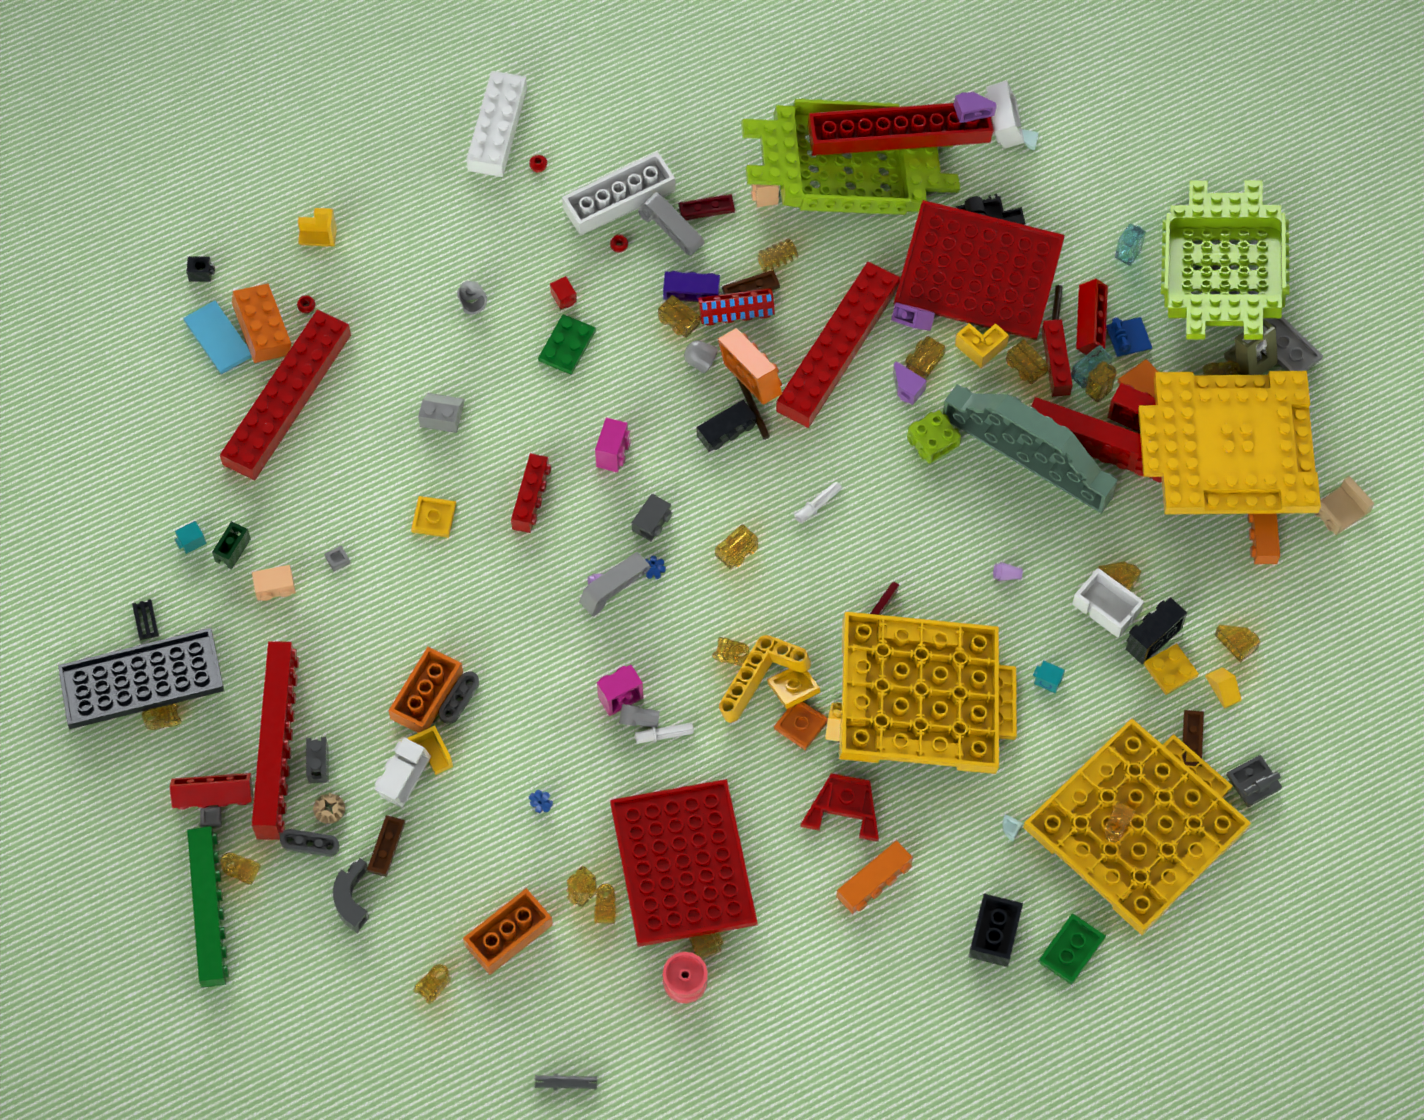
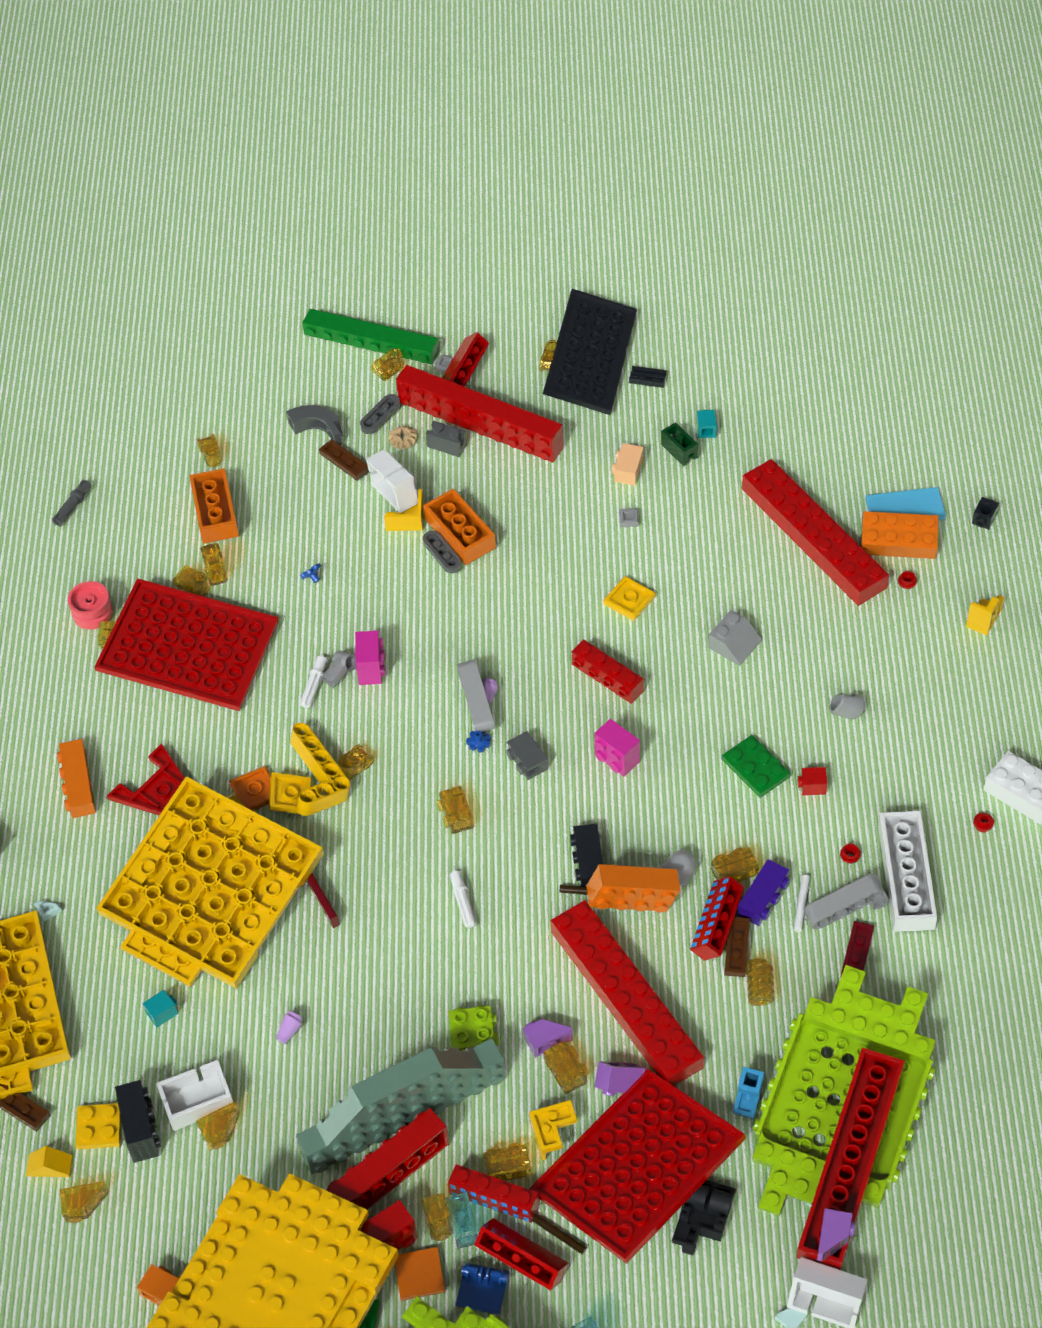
camera: 120 degrees right, 10 degrees down
(684, 260) = (801, 903): none -> white piece
(874, 226) = (748, 1093): none -> dark azure brick

